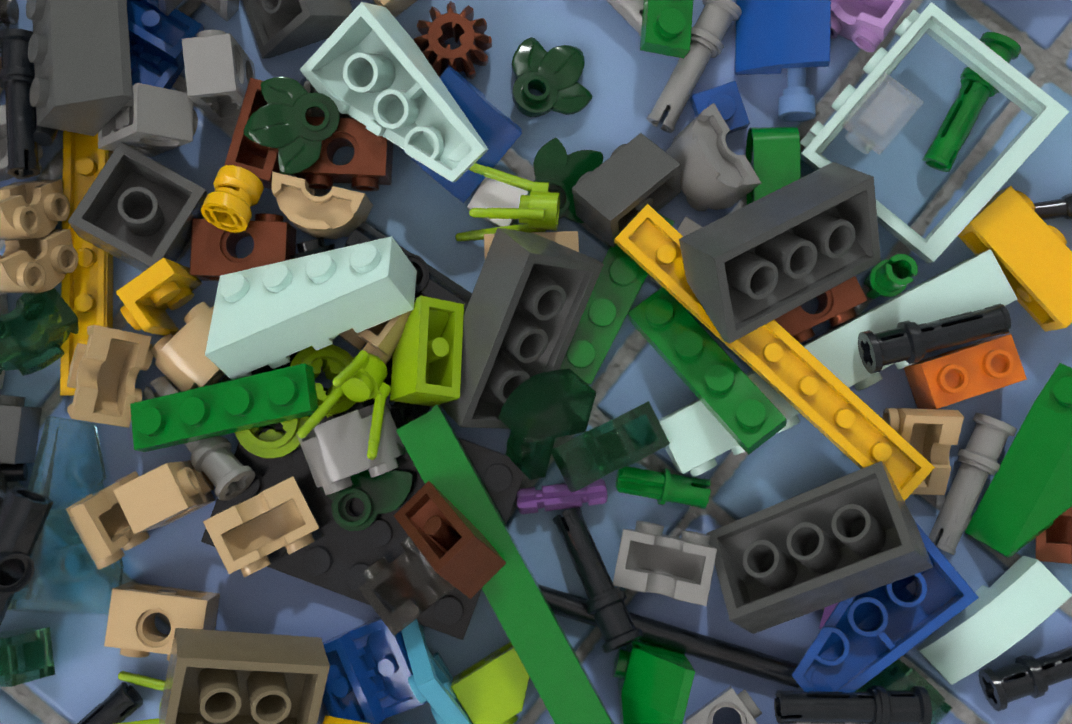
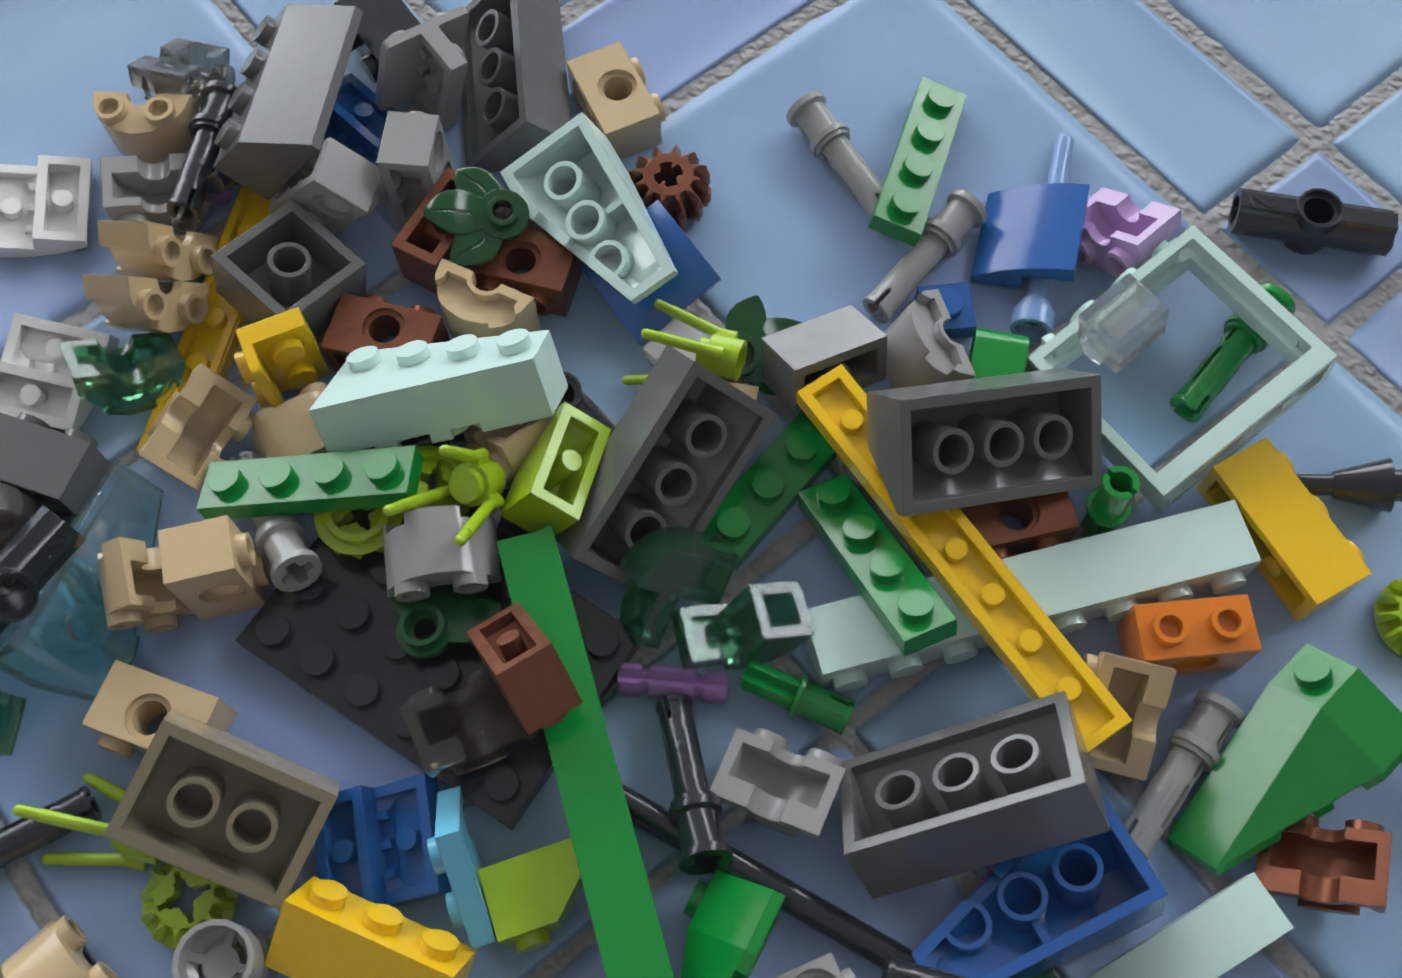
camera: 15 degrees right, 20 degrees down
(231, 201) = (390, 276): yellow wheel -> none
(261, 526) = (311, 624): tan cylinder -> none
(552, 74) = (763, 245): dark green plate -> none
(912, 340) = (1125, 573): black pin -> none

